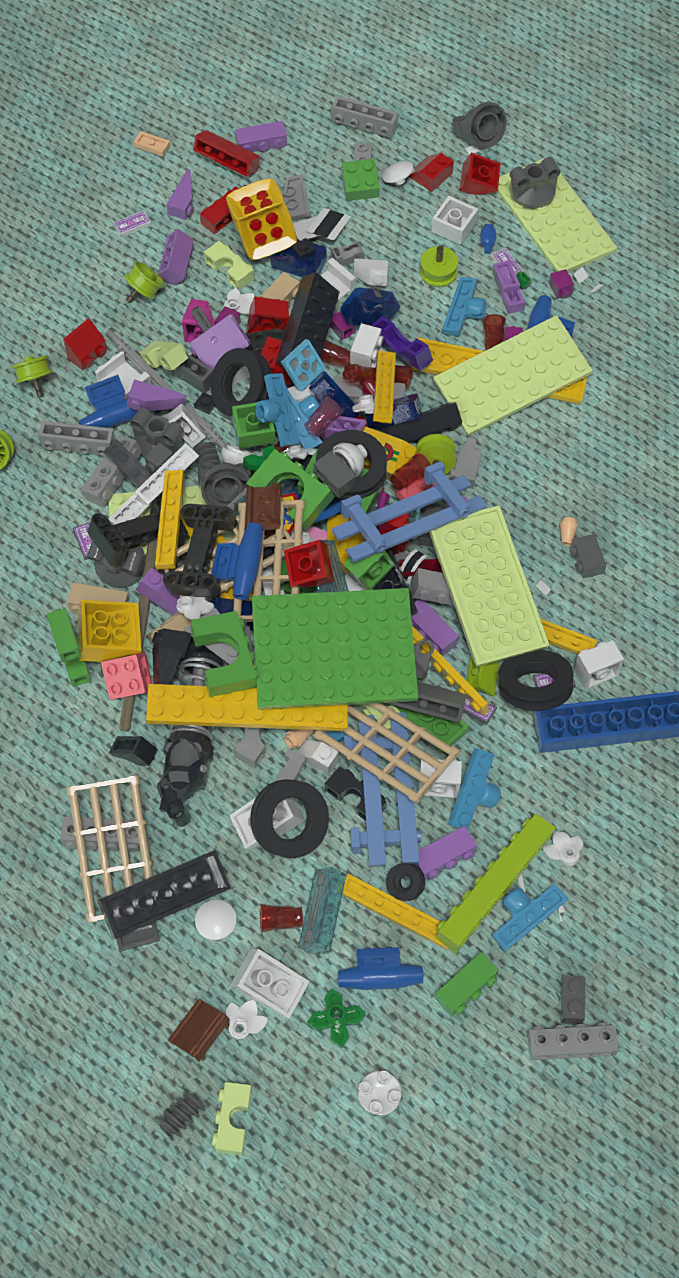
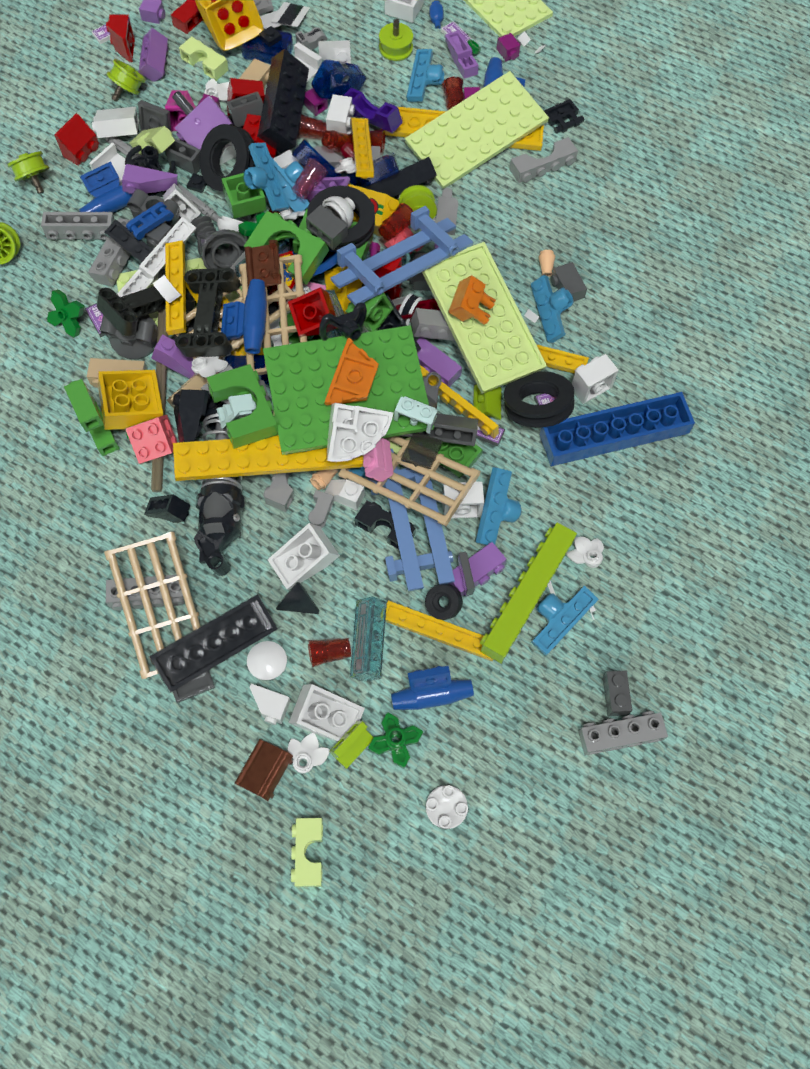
camera: 10 degrees left, 5 degrees up
(53, 531) = (65, 313): none -> green plant
(128, 328) = (116, 122): none -> white brick
(145, 232) = (121, 35): none -> red slope
(151, 443) = (149, 220): none -> blue plate
(157, 375) = (148, 159): none -> black piece
(161, 521) = (166, 289): none -> white sticker
(168, 328) = (152, 116): none -> dark grey tile
(180, 1115) = (255, 856): dark grey piece -> none
(214, 964) = (271, 704): none -> white slope
(219, 656) = (239, 407): none -> light aqua window
(255, 862) = (298, 601): none -> black piece
(266, 327) = (244, 105): none -> dark grey brick
(291, 1016) = (351, 744): none -> lime panel
(303, 365) = (284, 133): medium azure piece -> none
(315, 826) = (300, 550): black tyre -> none
(335, 694) = (355, 431): none -> white brick
(340, 636) = (353, 376): none -> orange wing
(342, 580) = (347, 324): none -> black piece
(355, 724) = (379, 461): none -> bright pink brick
(401, 682) = (416, 411): none -> light aqua window
(403, 721) = (422, 450): none -> clear smoke piece
(432, 855) = (466, 573): none -> dark grey tile
(467, 985) = (515, 692): bright green brick -> none
(472, 566) = (467, 299): none -> orange brick
(560, 422) = (527, 167): none -> light grey arch
(565, 580) = (551, 306): none -> dark azure plate
(610, 363) = (561, 112): none -> black plate

